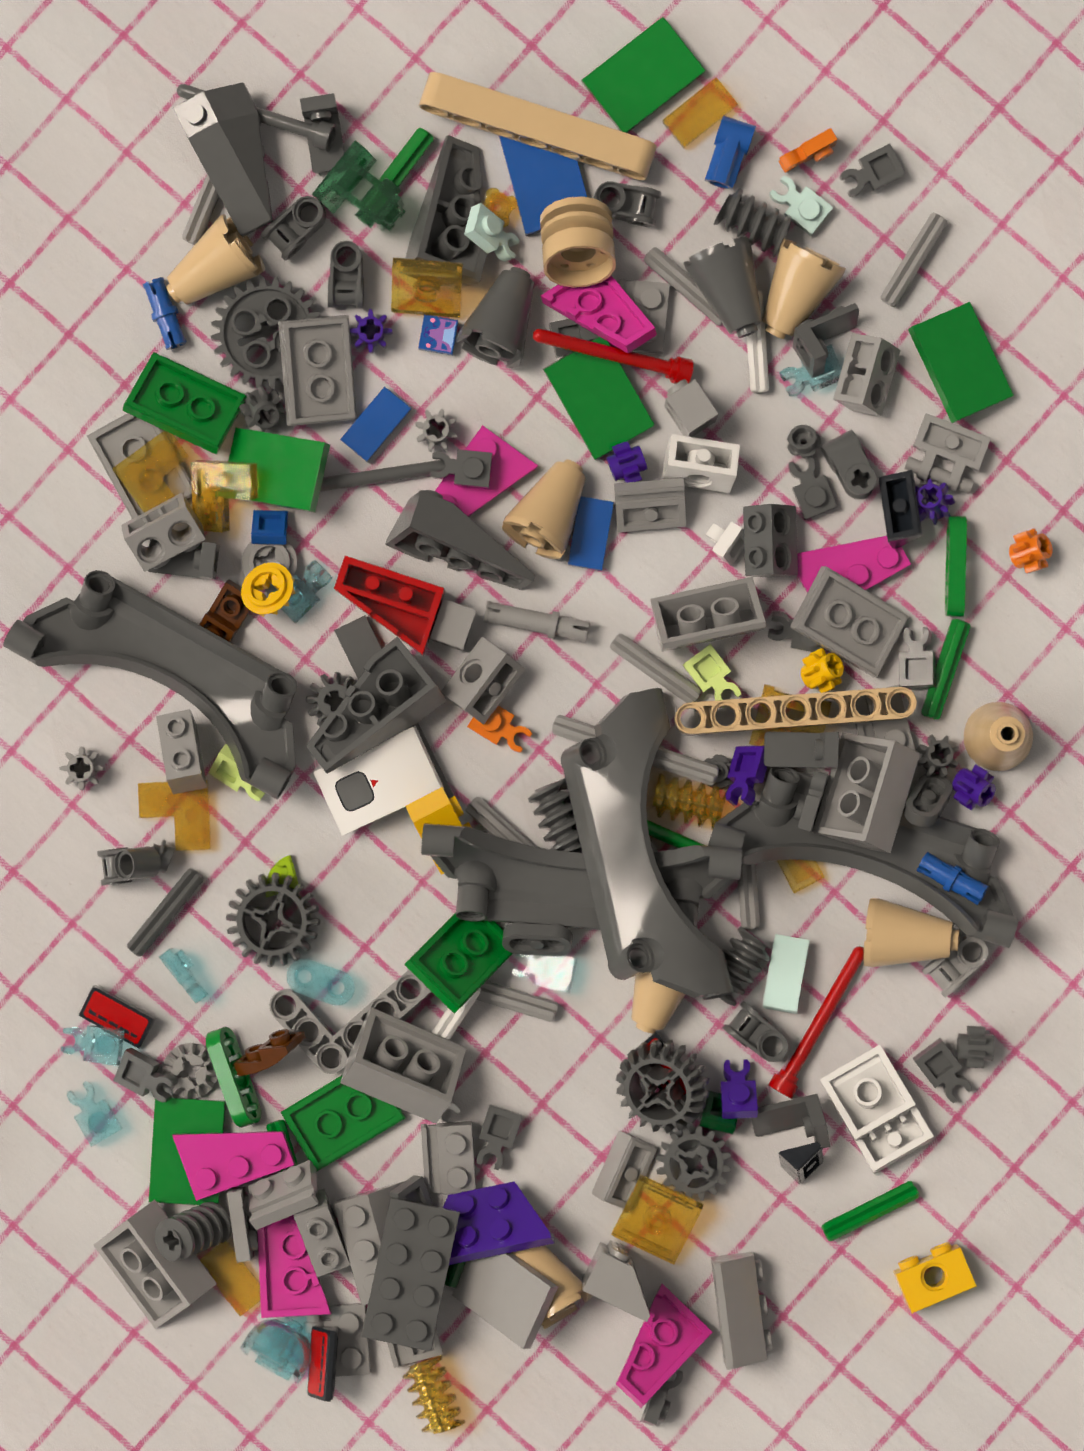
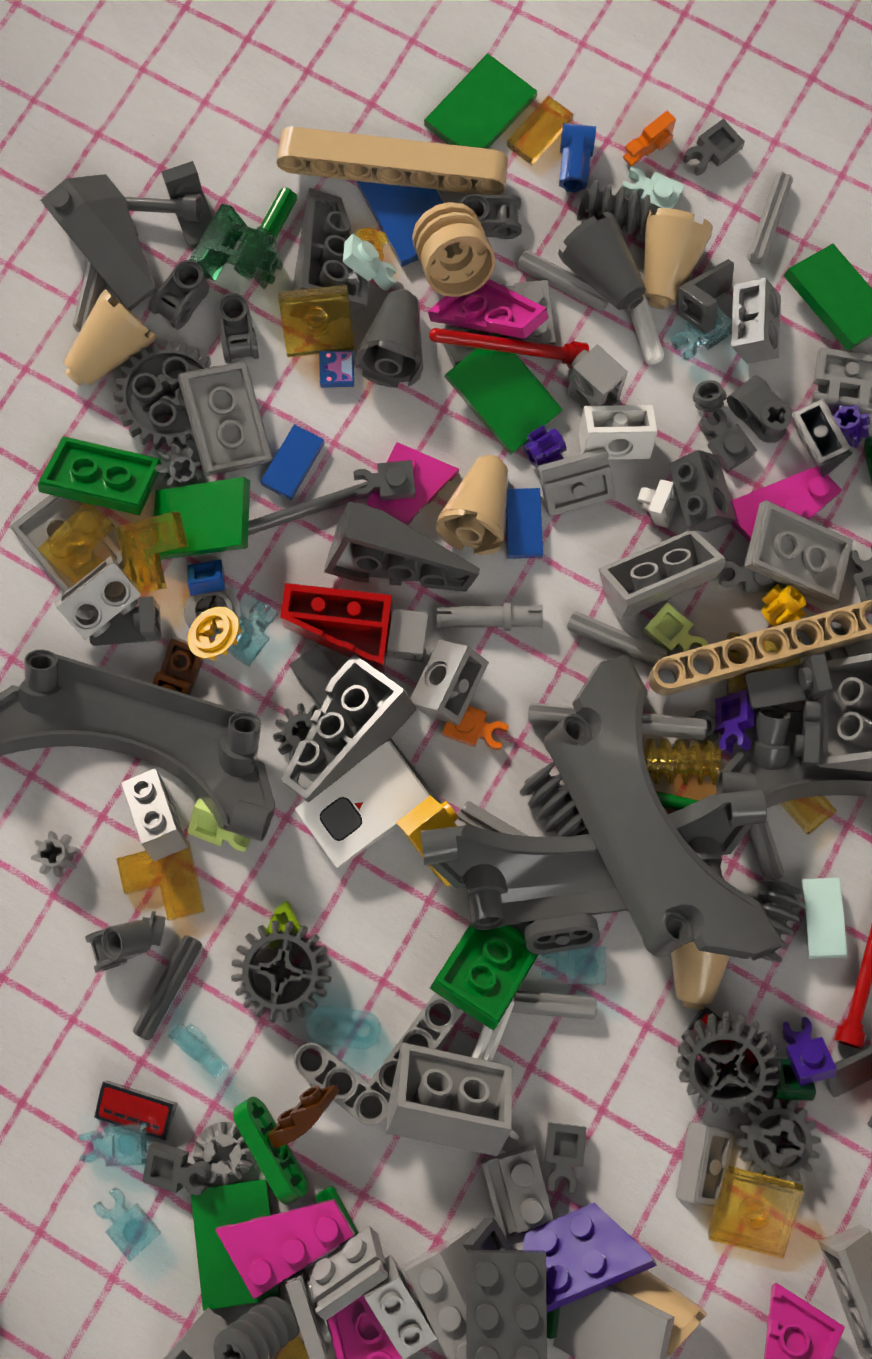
camera: 15 degrees left, 10 degrees down
(164, 313) = (67, 399): blue pin -> none
(338, 1121) = (390, 1176): green tile -> none
(378, 337) = (271, 385): dark purple gear -> none
(432, 439) = (355, 445): light grey gear -> none
(615, 1280) = (732, 1294): light grey slope -> none
(755, 1032) = (805, 983): dark grey piece -> none

